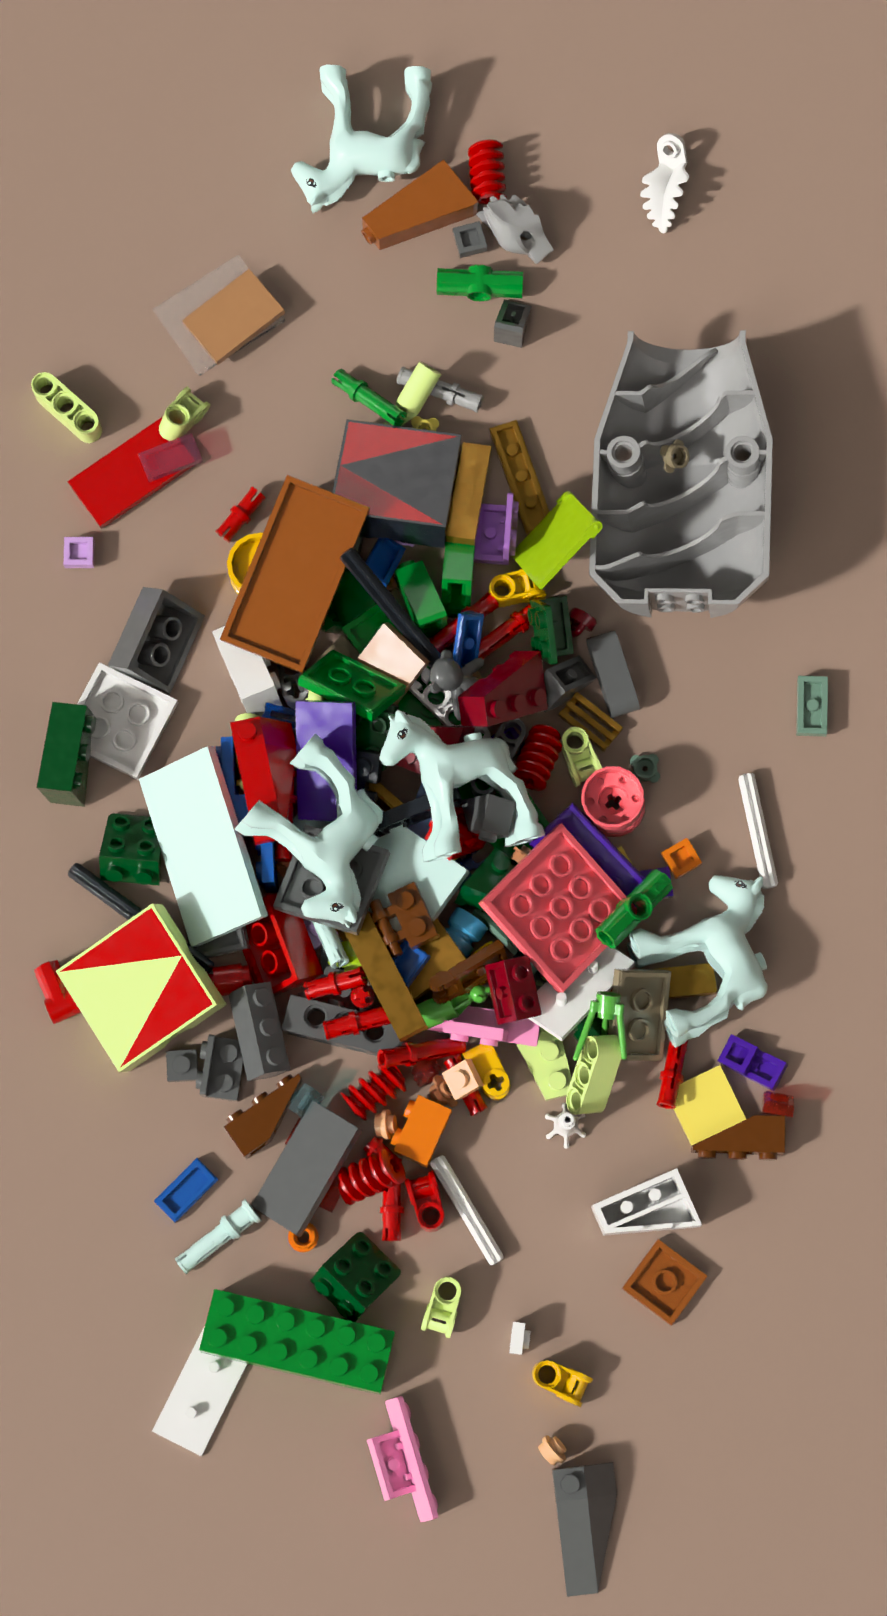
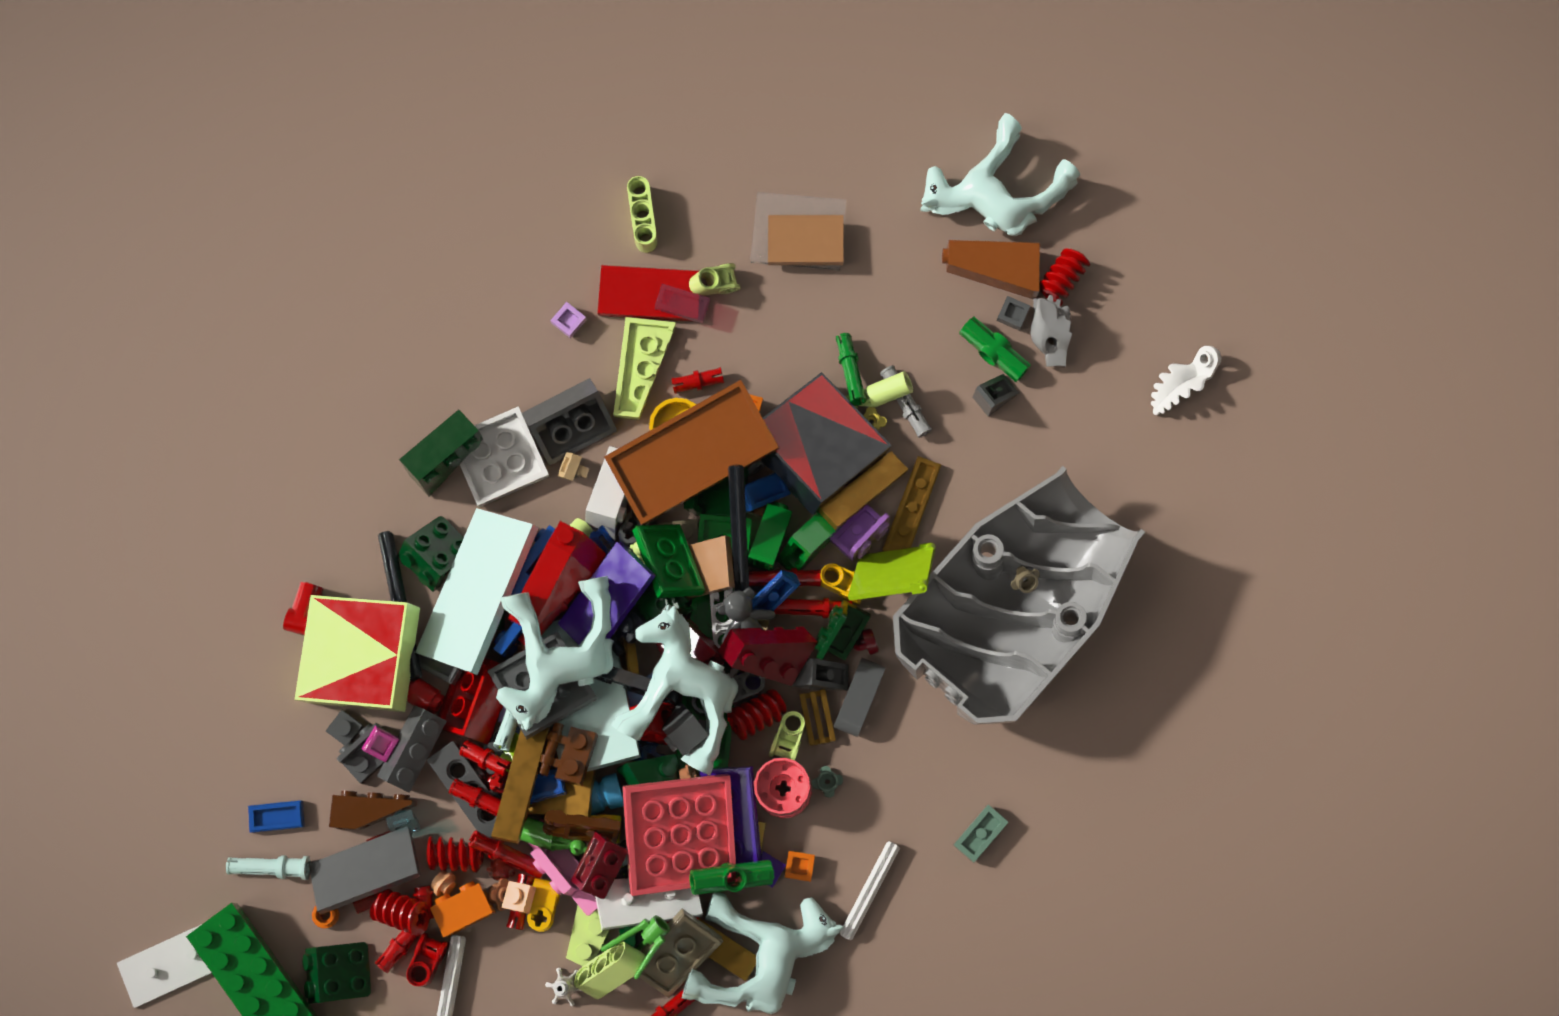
camera: 35 degrees right, 0 degrees up
(172, 533) = (640, 361): none -> yellowish green wing
(193, 678) = (571, 467): none -> tan tile
(228, 1049) = (380, 743): none -> dark pink tile

